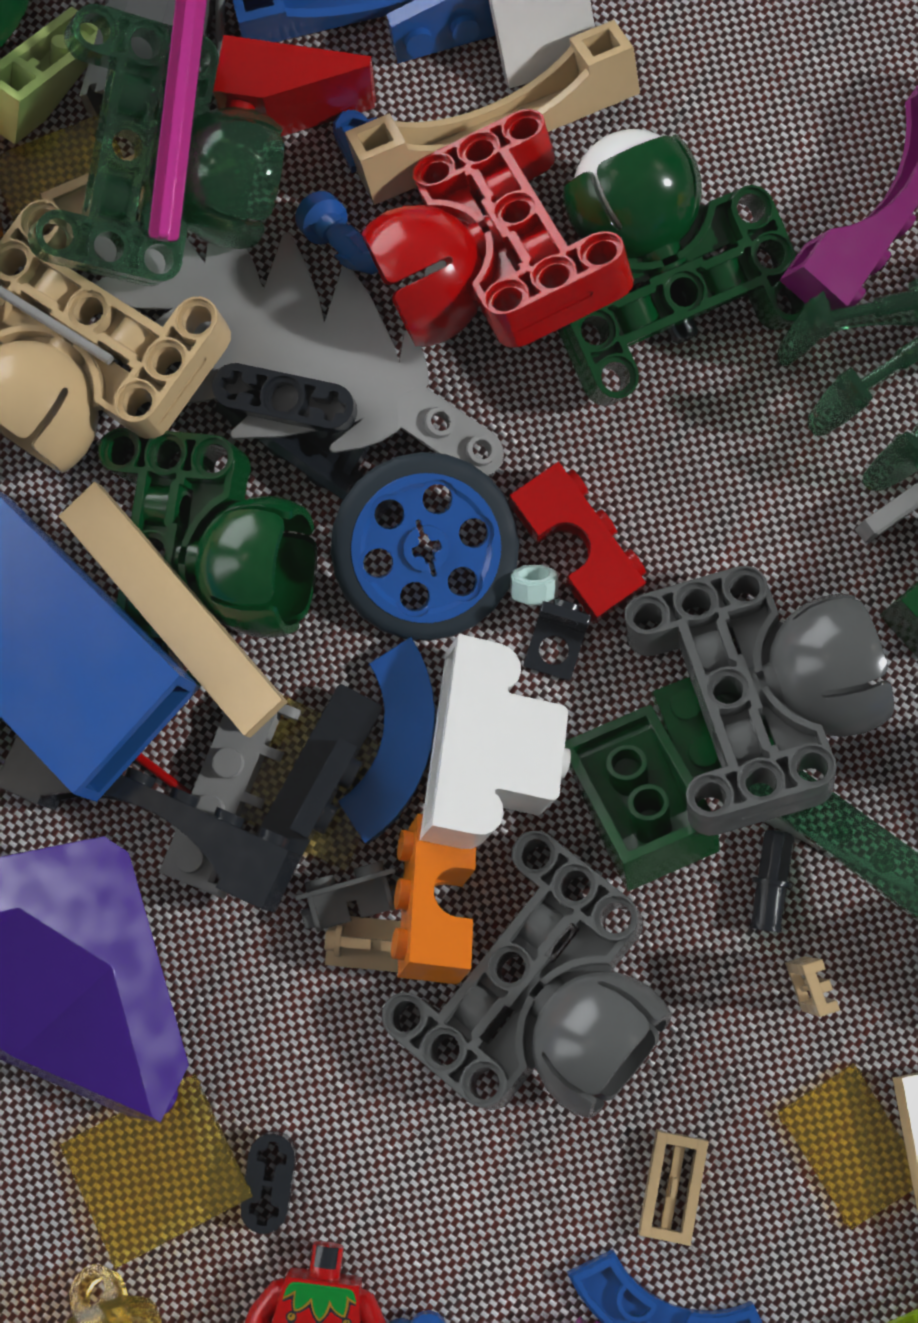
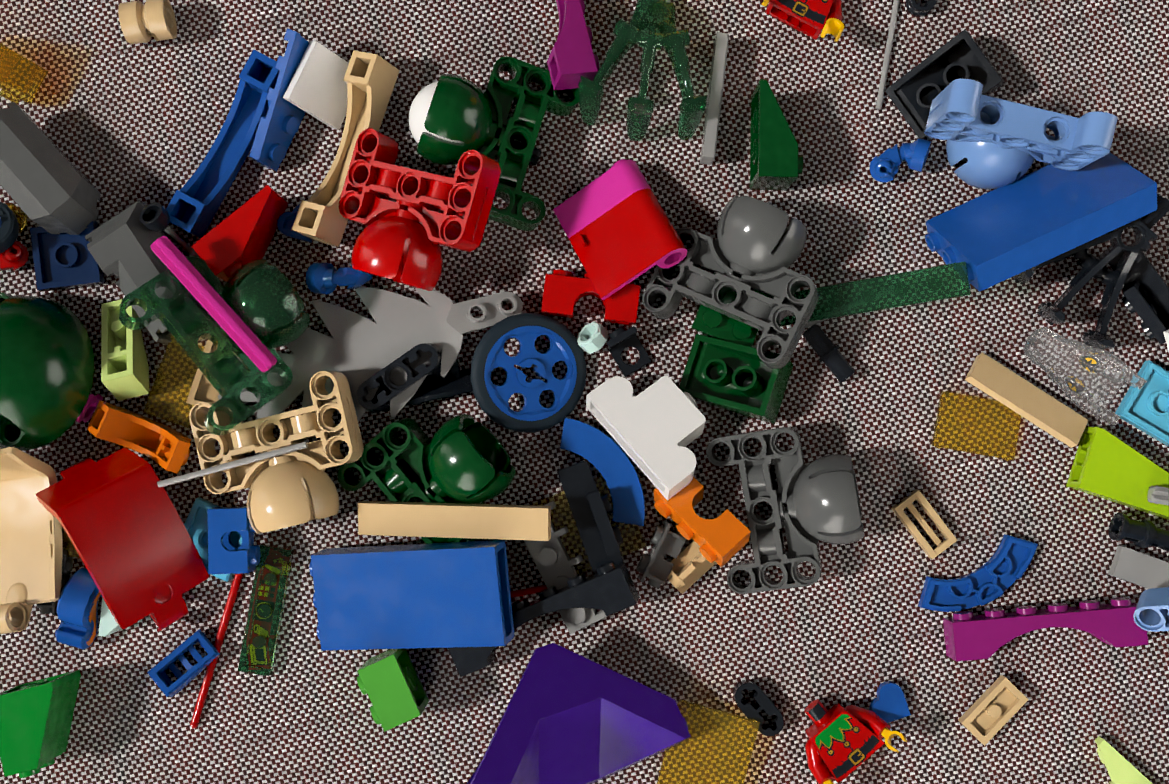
camera: 55 degrees left, 5 degrees up
(690, 499) = (619, 228): none -> red door
(817, 1003) = (893, 380): tan tile -> none

